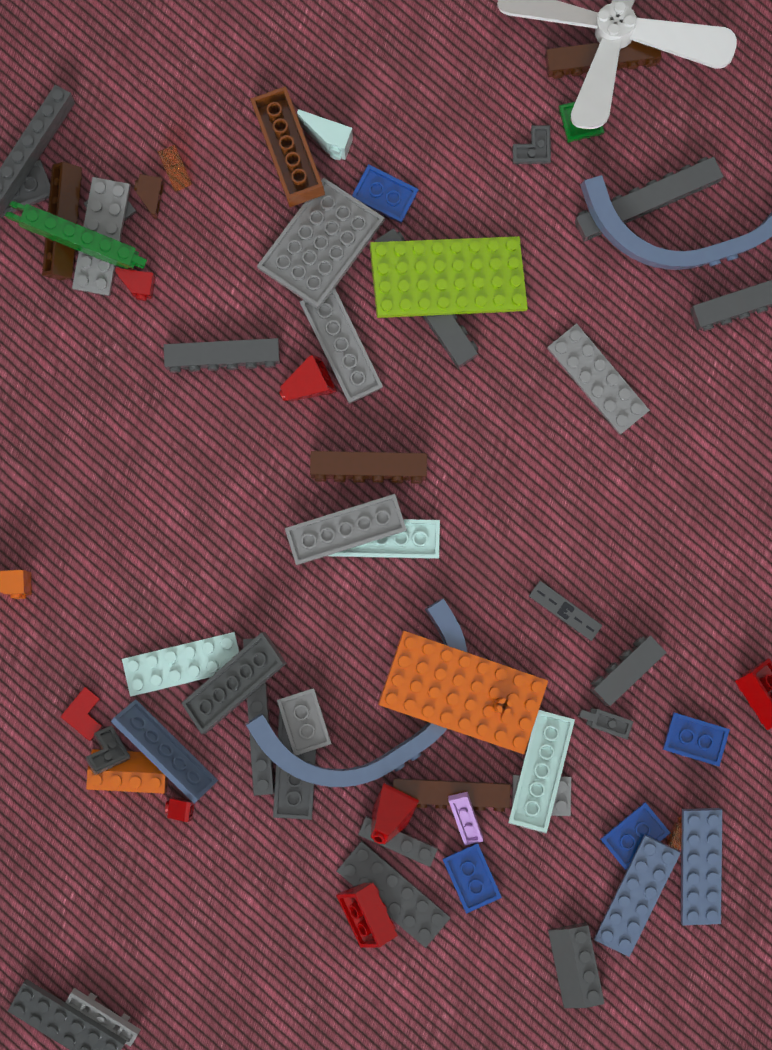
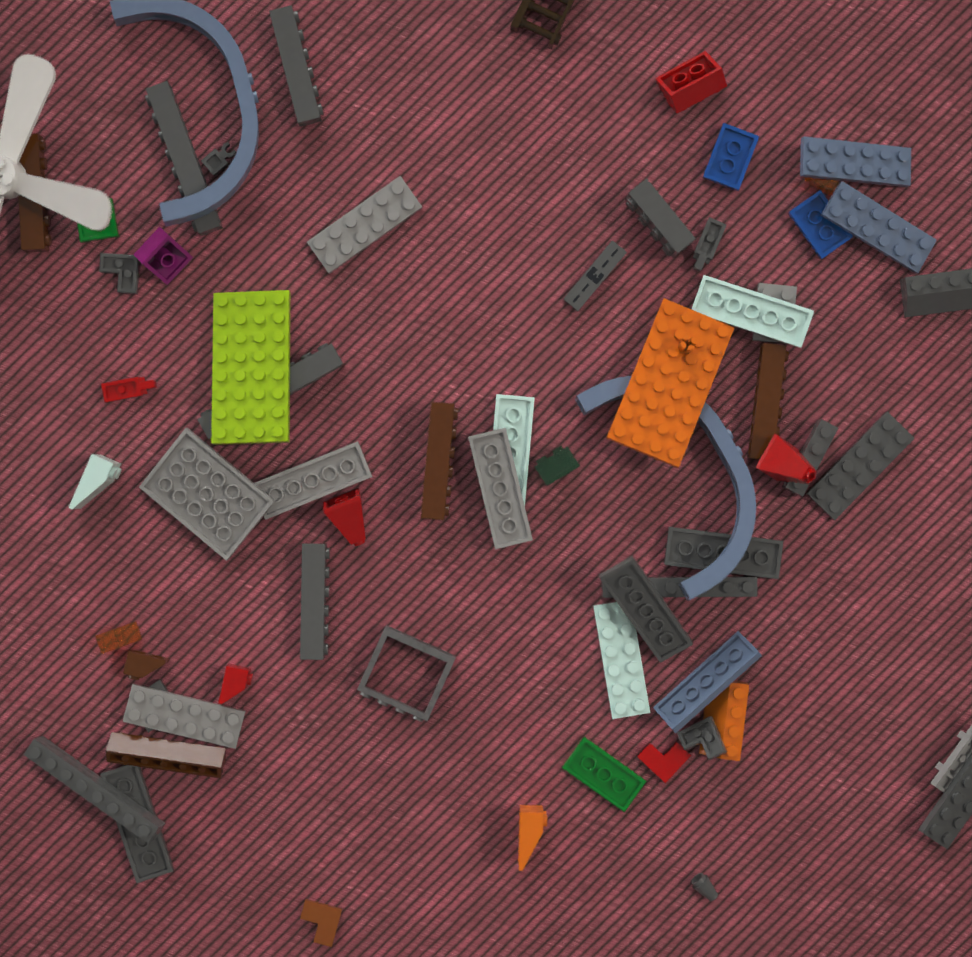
camera: 85 degrees left, 5 degrees up
(66, 654) = (604, 774): none -> green tile
(76, 236) = (185, 741): green hinge -> none
(179, 809) = (765, 670): red slope -> none
(185, 459) = (420, 645): none -> flat silver window
(287, 146) = (105, 521): dark orange brick -> none
(304, 722) = (688, 542): light grey plate -> none
(367, 915) = (880, 492): red slope -> none
(371, 583) = (556, 466): none -> clear green slope
(385, 194) = (160, 425): blue plate -> none
(418, 159) = (126, 388): none -> red hinge
(465, 818) = (793, 389): lavender plate -> none
(472, 878) = (850, 387): blue plate -> none
(551, 185) = (163, 255): none -> magenta slope
(648, 230) = (216, 161): none -> dark grey plate

